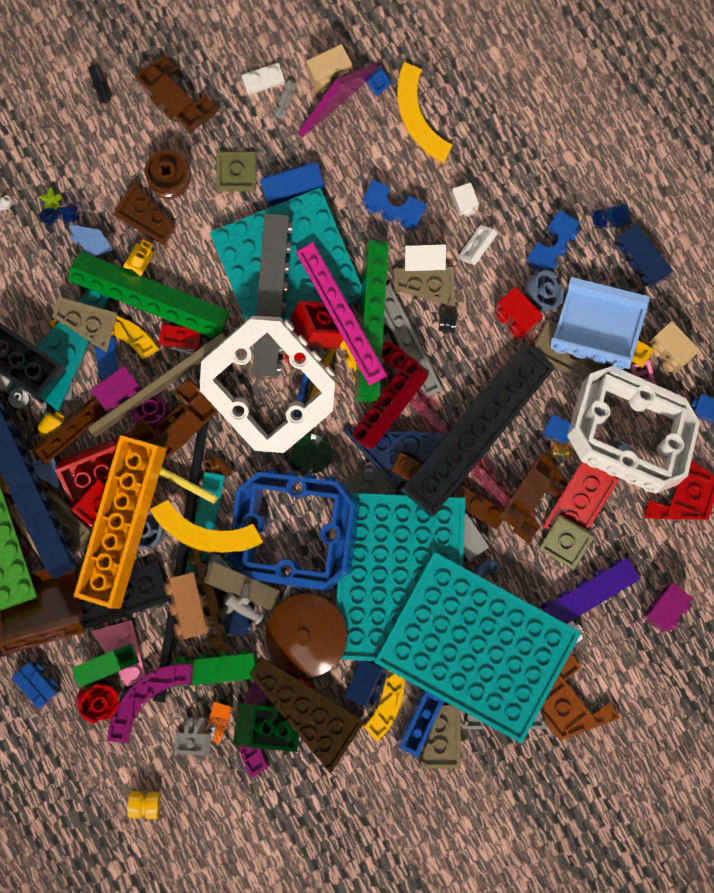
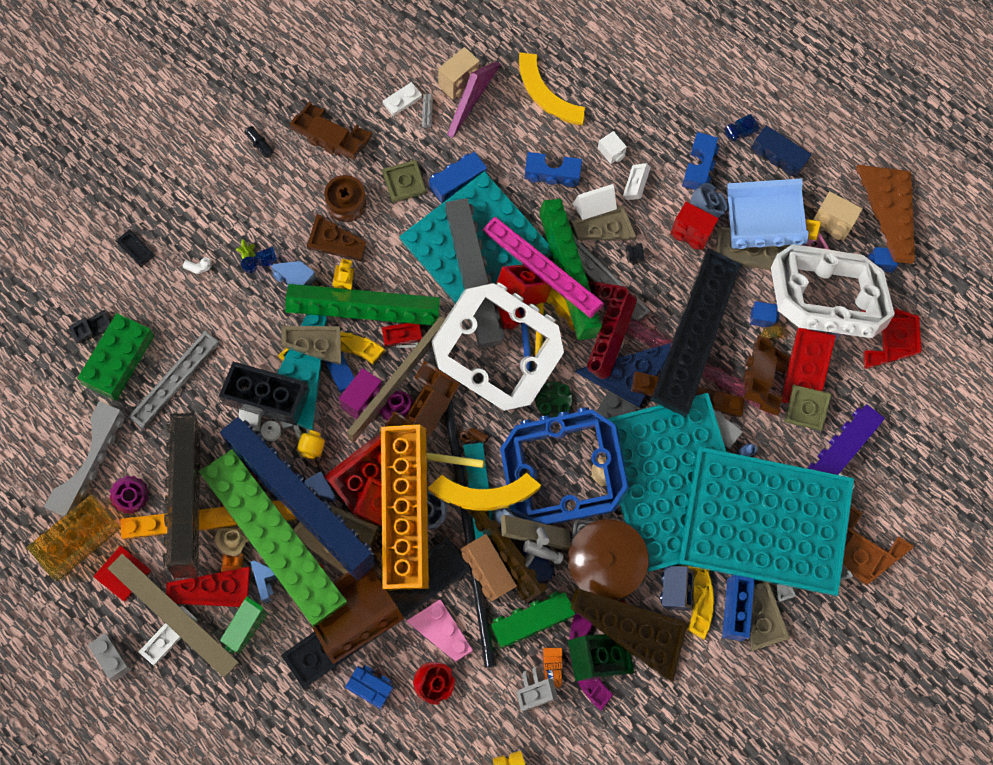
camera: 20 degrees left, 10 degrees down
(69, 430) = (327, 443): reddish brown tile -> none
(105, 665) = (431, 645): green brick -> none
(141, 693) = (474, 660): magenta tile -> none
(377, 81) = (502, 73): blue plate -> none
(667, 608) = (918, 436): magenta brick -> none

